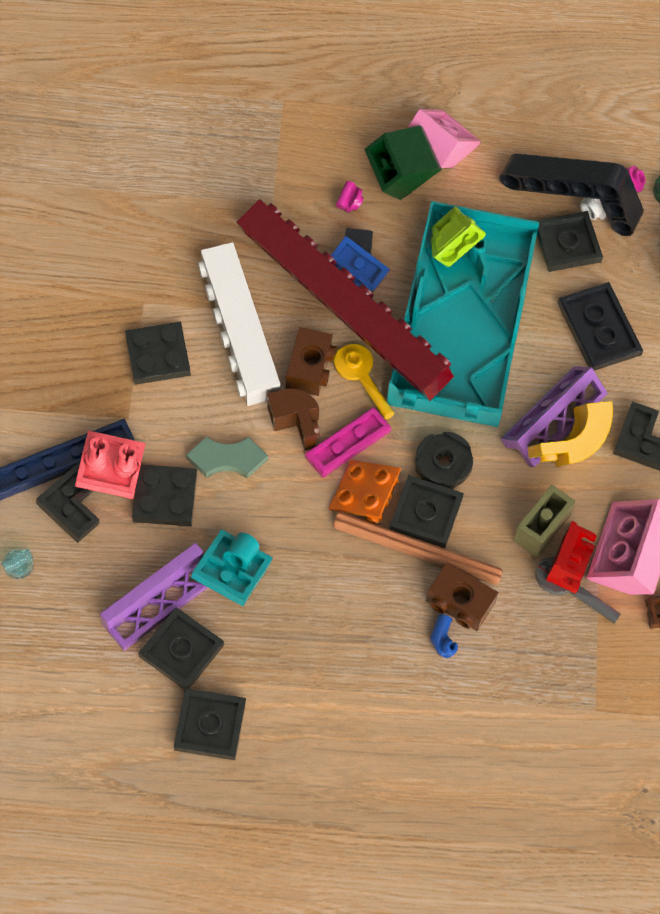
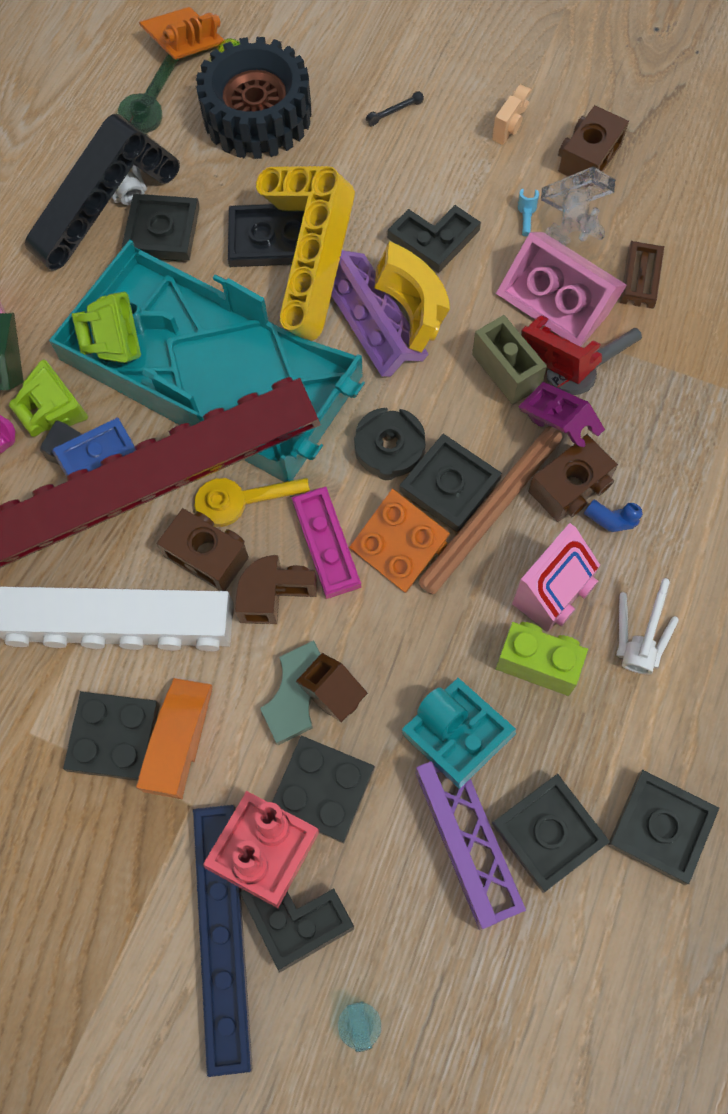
camera: 65 degrees left, 5 degrees up
(168, 390) = (175, 739): none -> orange slope
(234, 474) = (332, 687): none -> reddish brown brick
(305, 608) = (542, 658): none -> lime brick
(335, 679) = (640, 654): none -> white plant
(369, 601) = (557, 580): none -> bright pink slope
(391, 222) = (49, 394): none -> lime piece
(507, 567) = (562, 412): none -> magenta hinge
(588, 350) = (327, 208): none -> yellow beam

